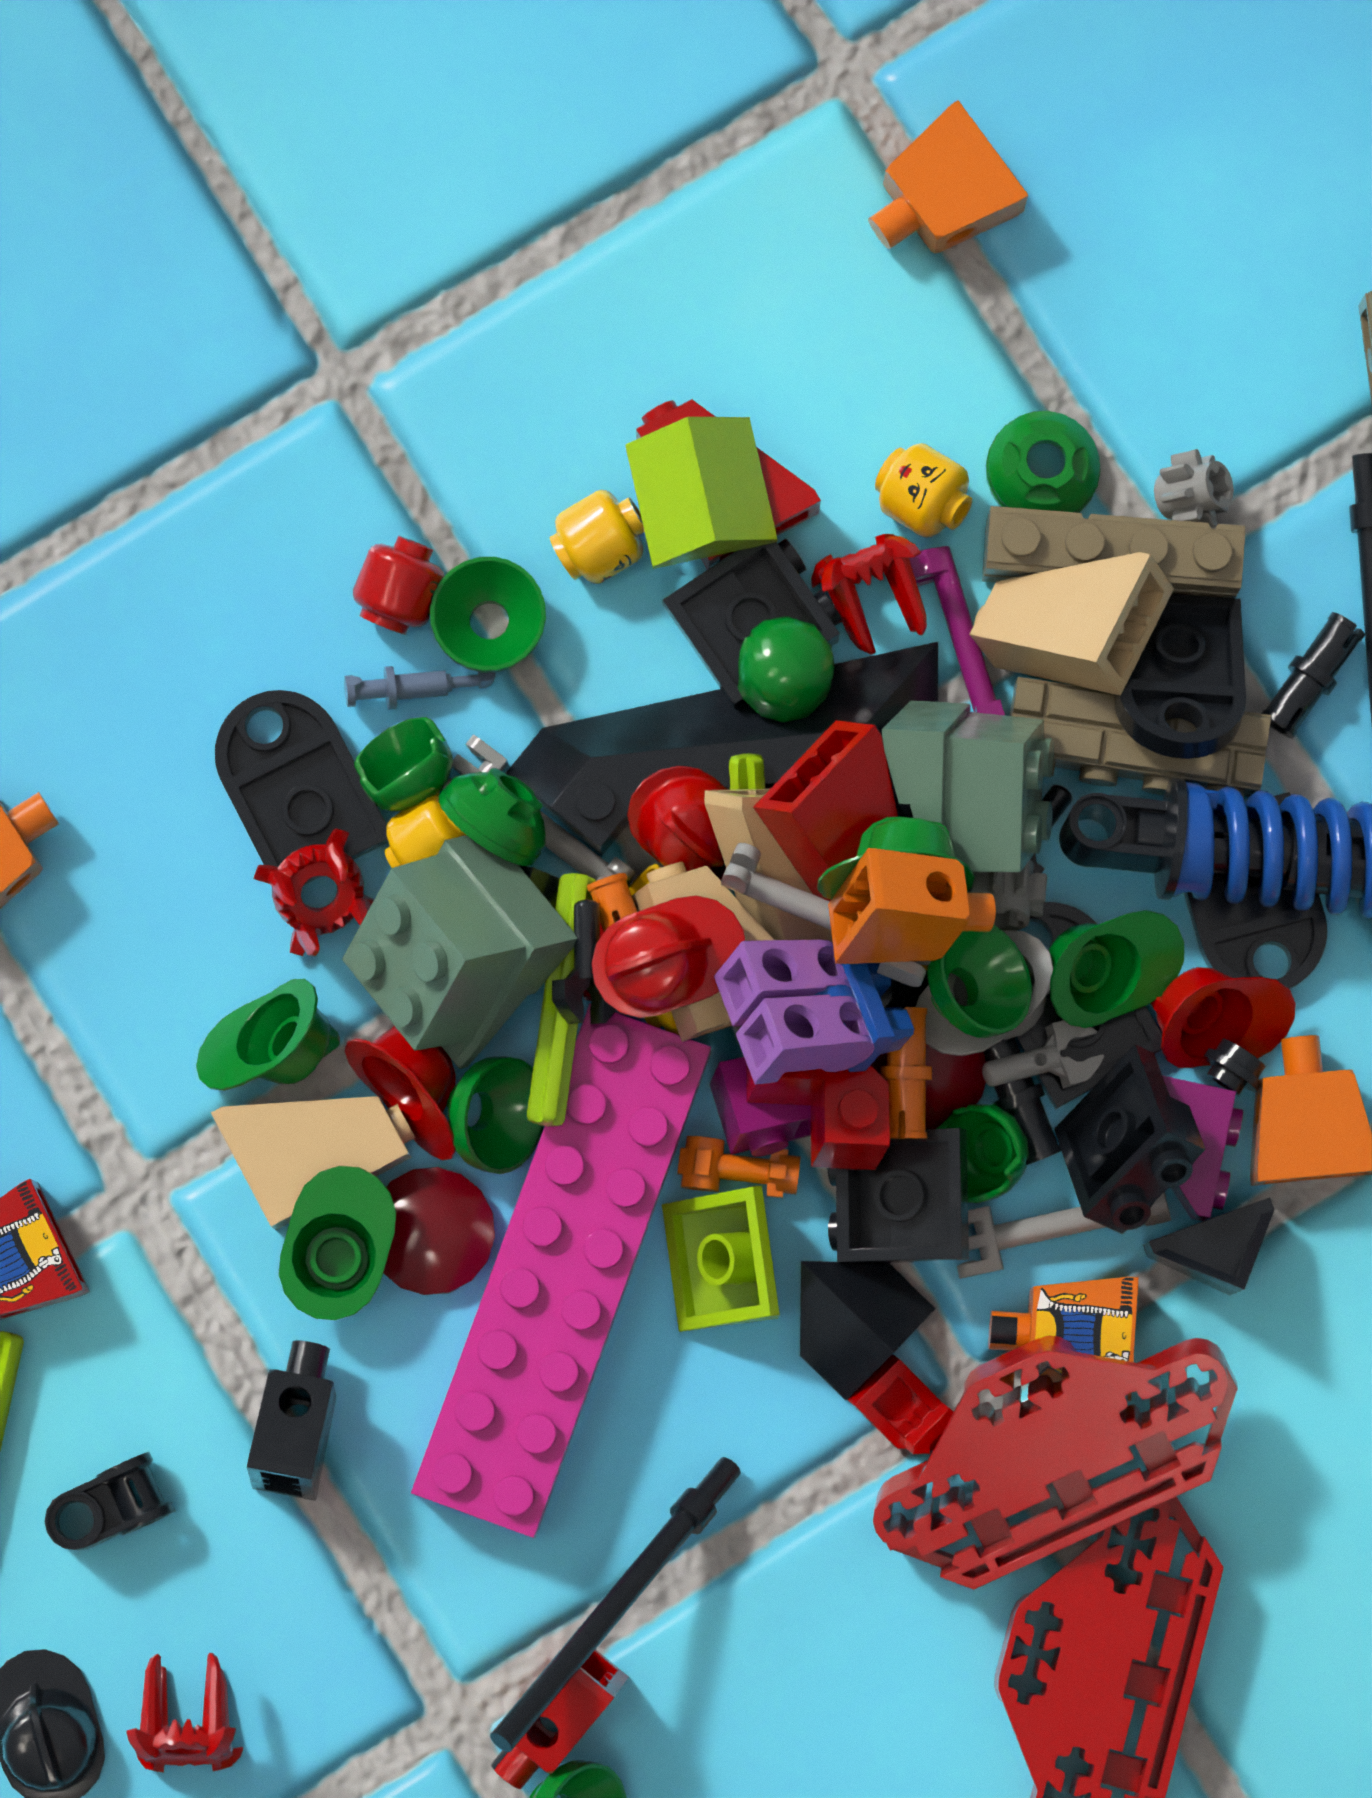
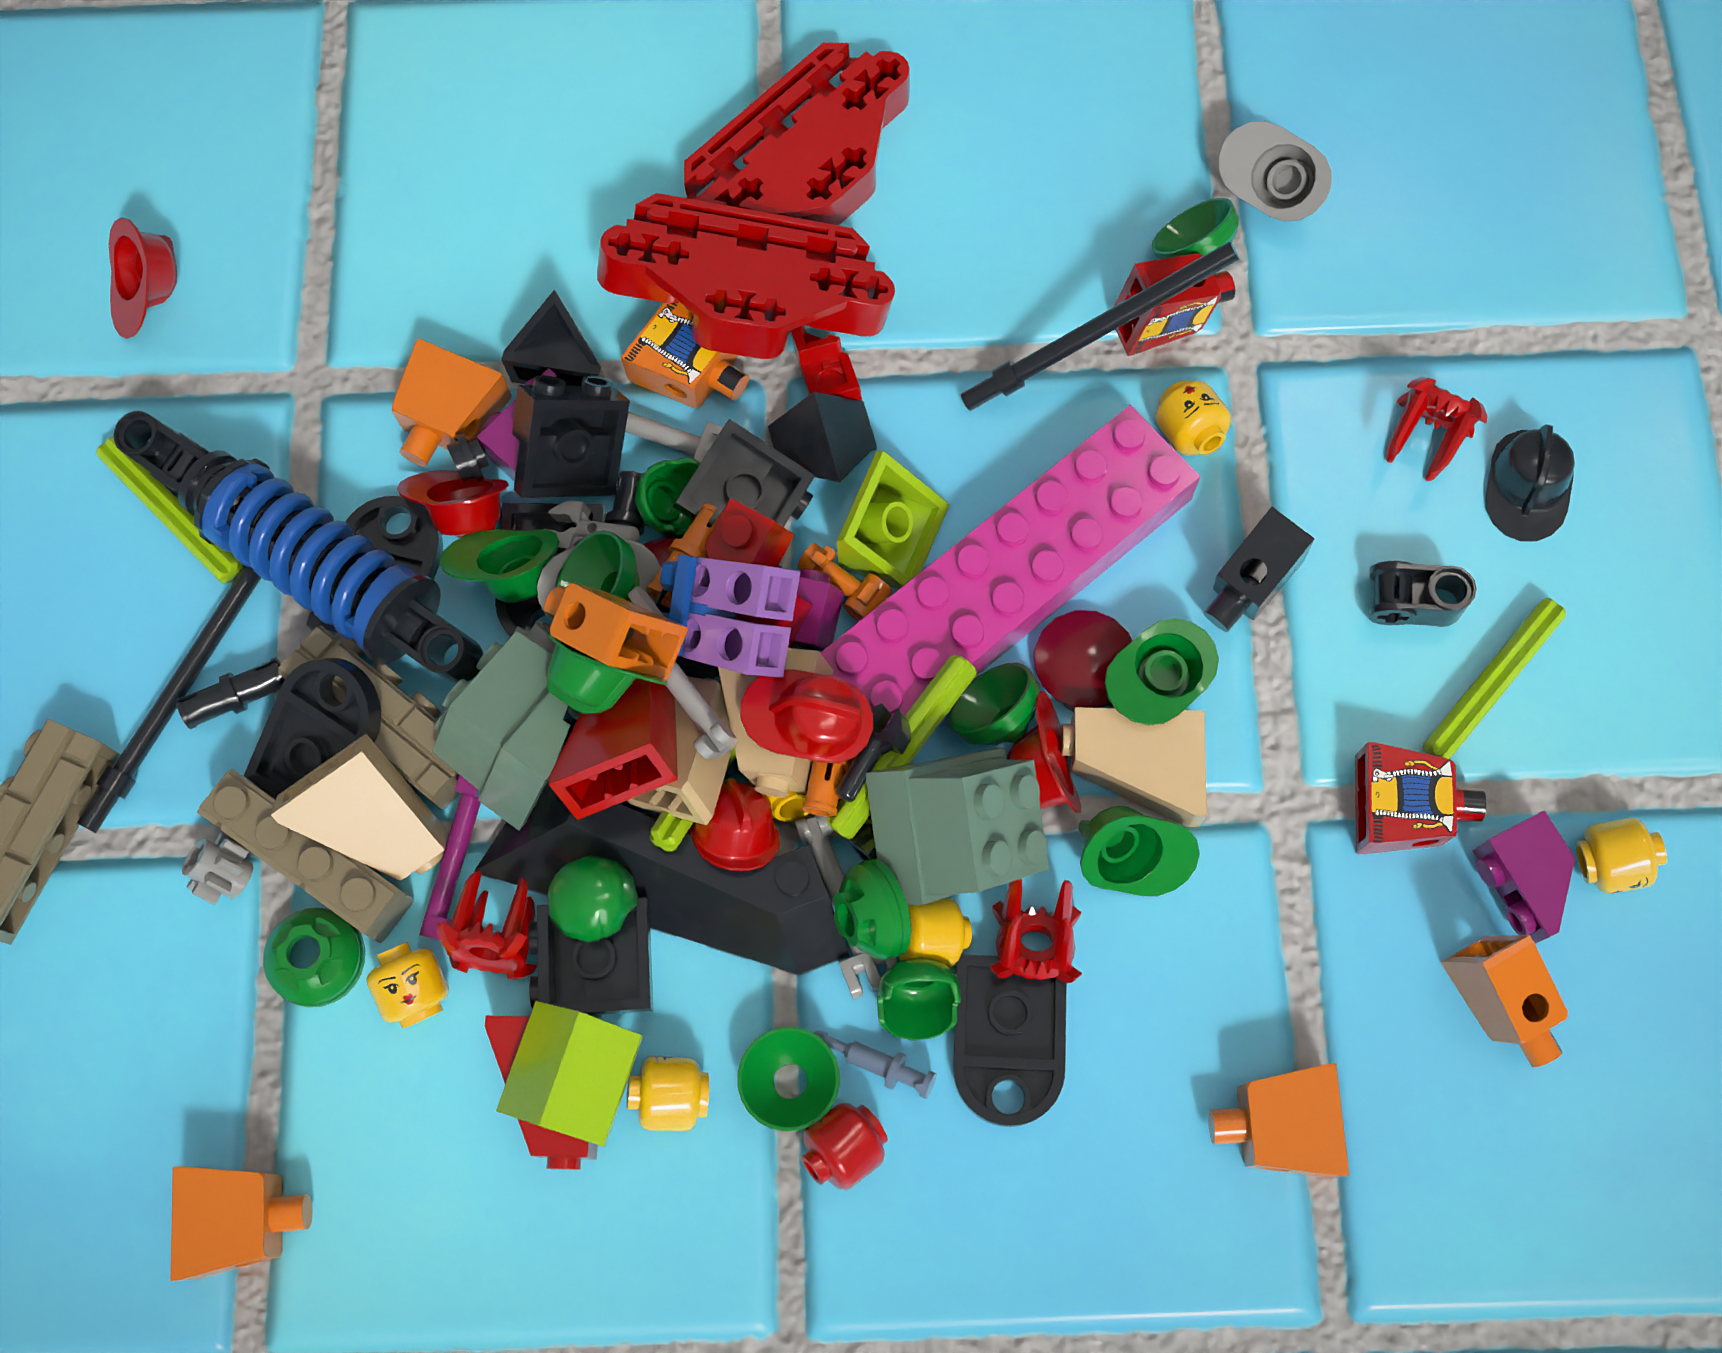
camera: 145 degrees left, 10 degrees down
(460, 1581) = (1193, 417): none -> yellow head

